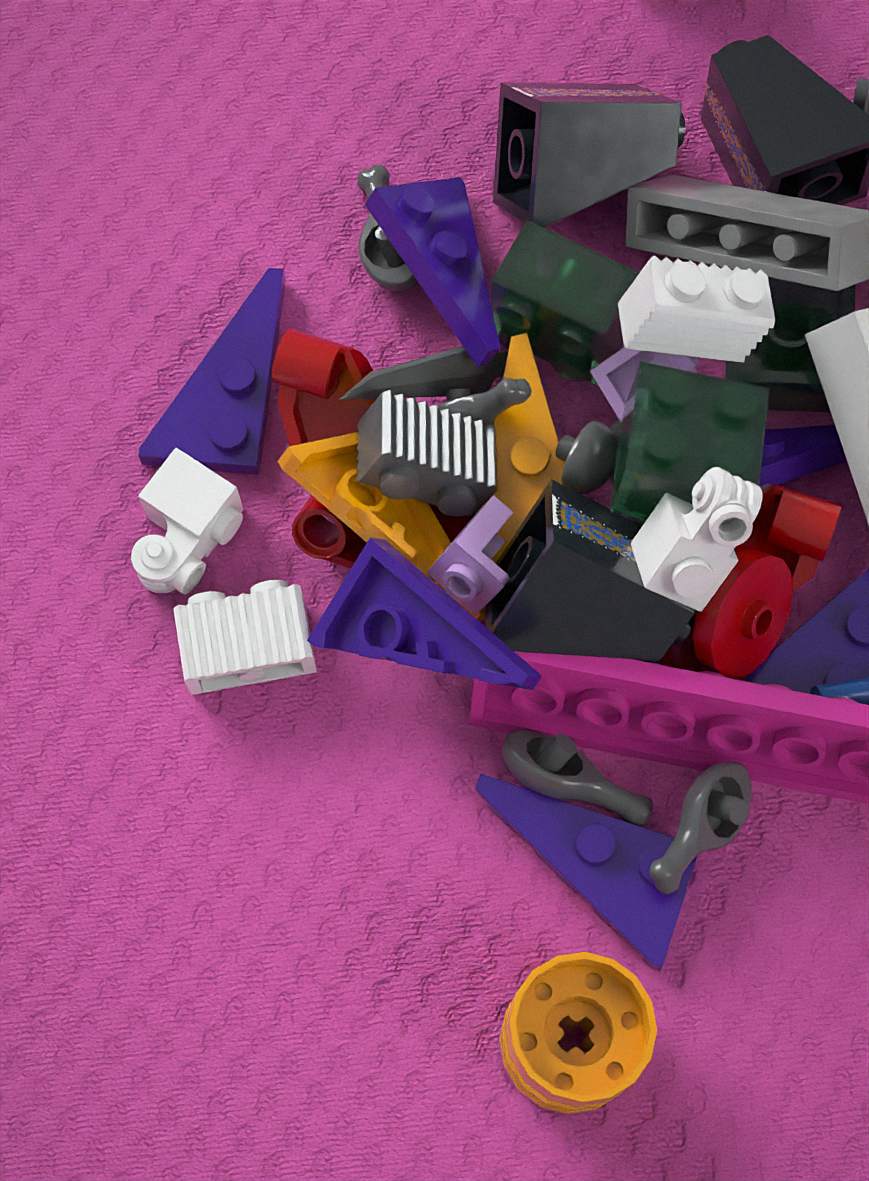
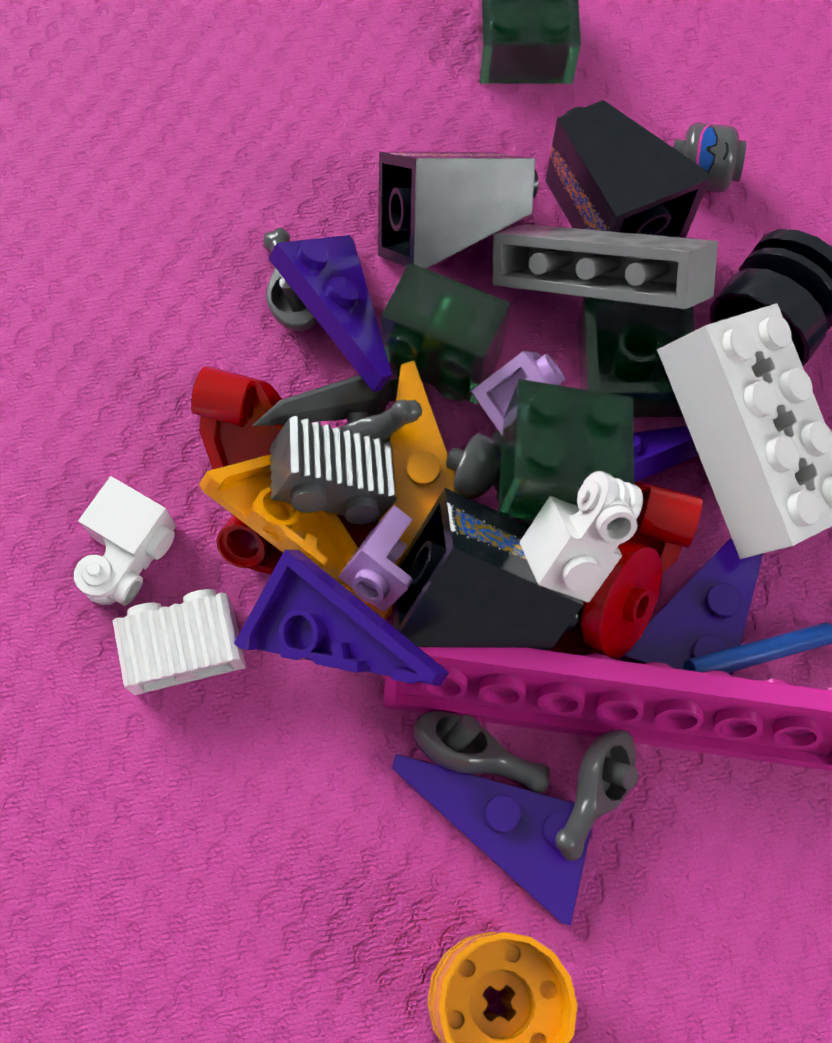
camera: 10 degrees left, 0 degrees up
(226, 400) = (157, 433): dark purple wing -> none
(696, 310) = (563, 331): white brick -> none

